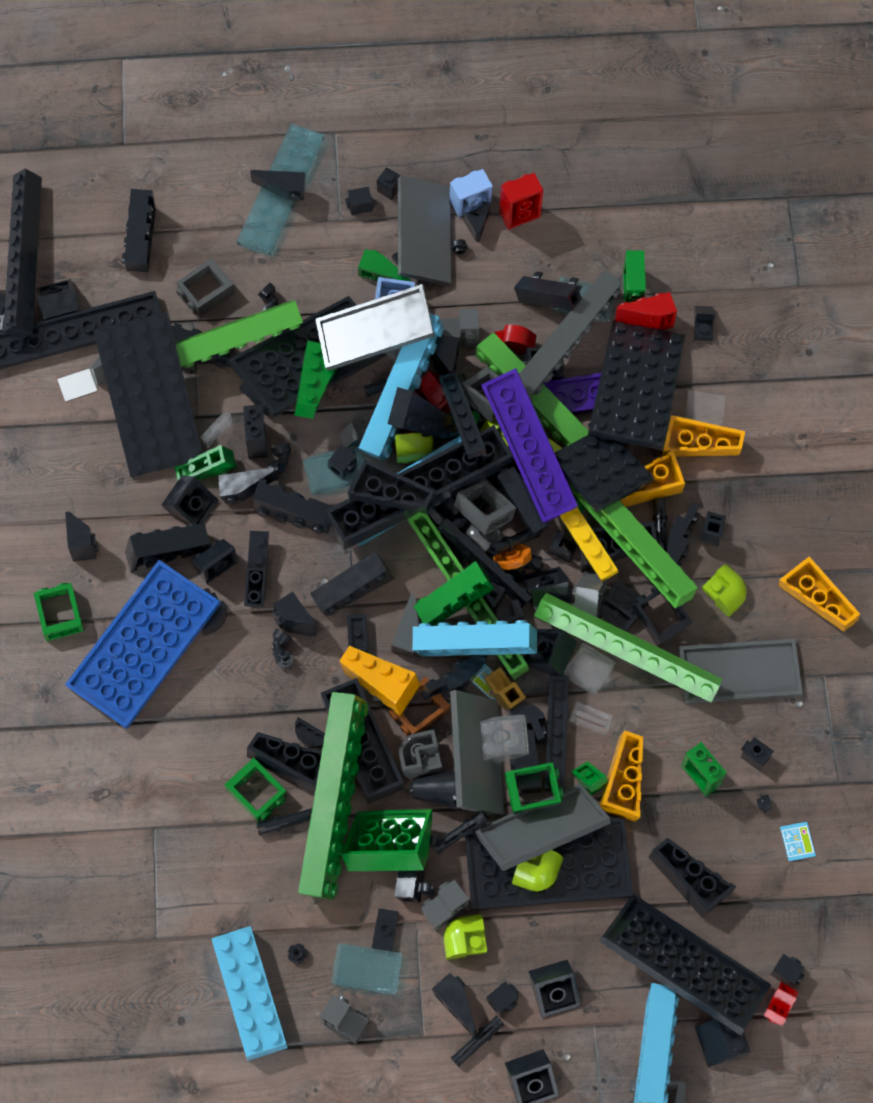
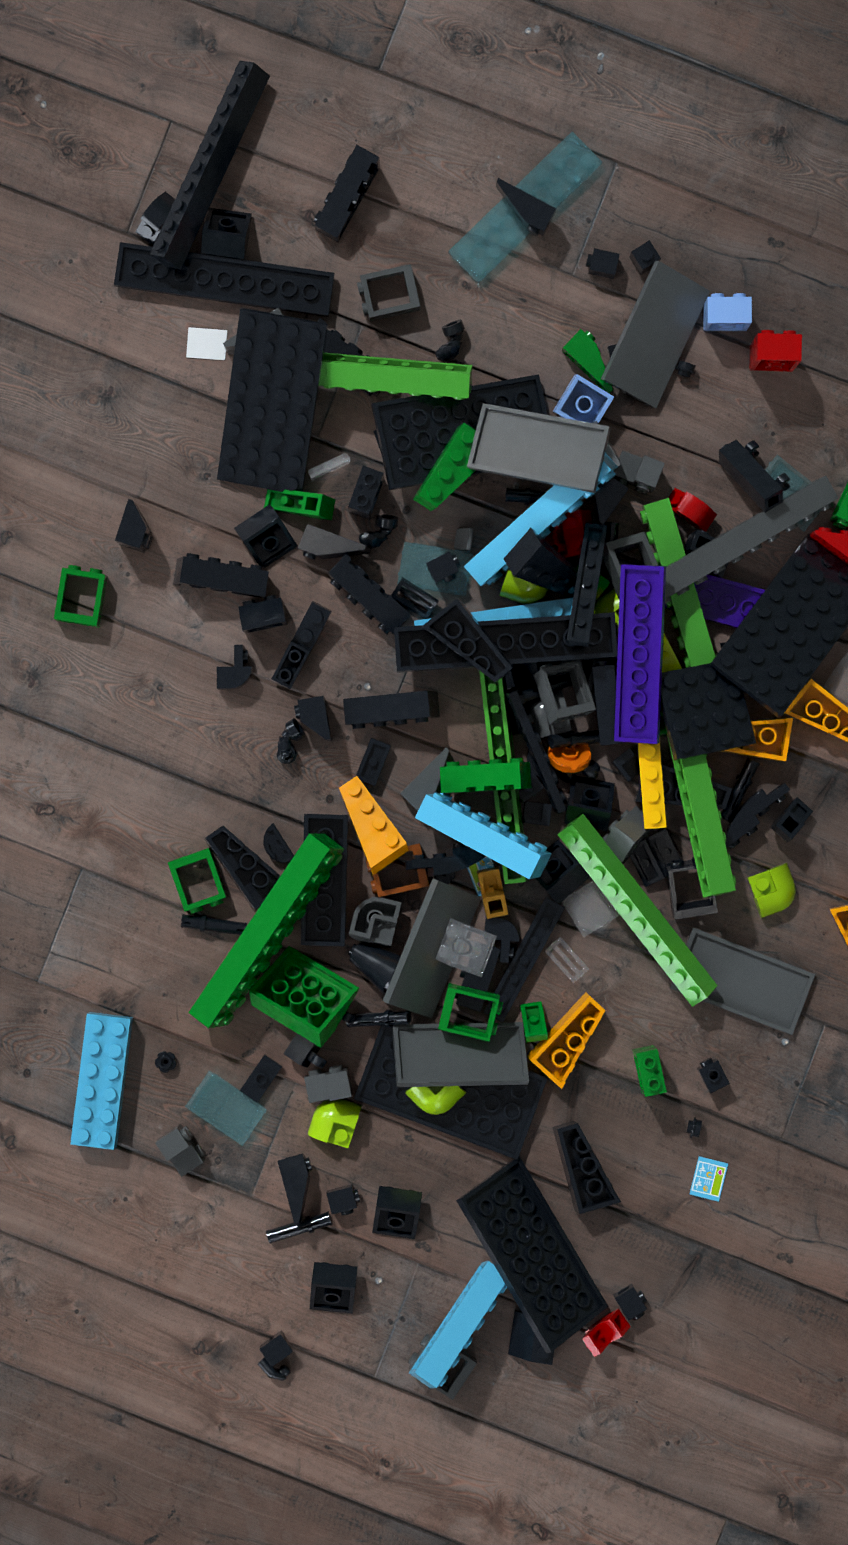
camera: 25 degrees right, 20 degrees up
(143, 644) = (150, 675): blue plate -> none
(314, 494) = (419, 592): none -> black tile
(477, 222) = (716, 351): black slope -> none

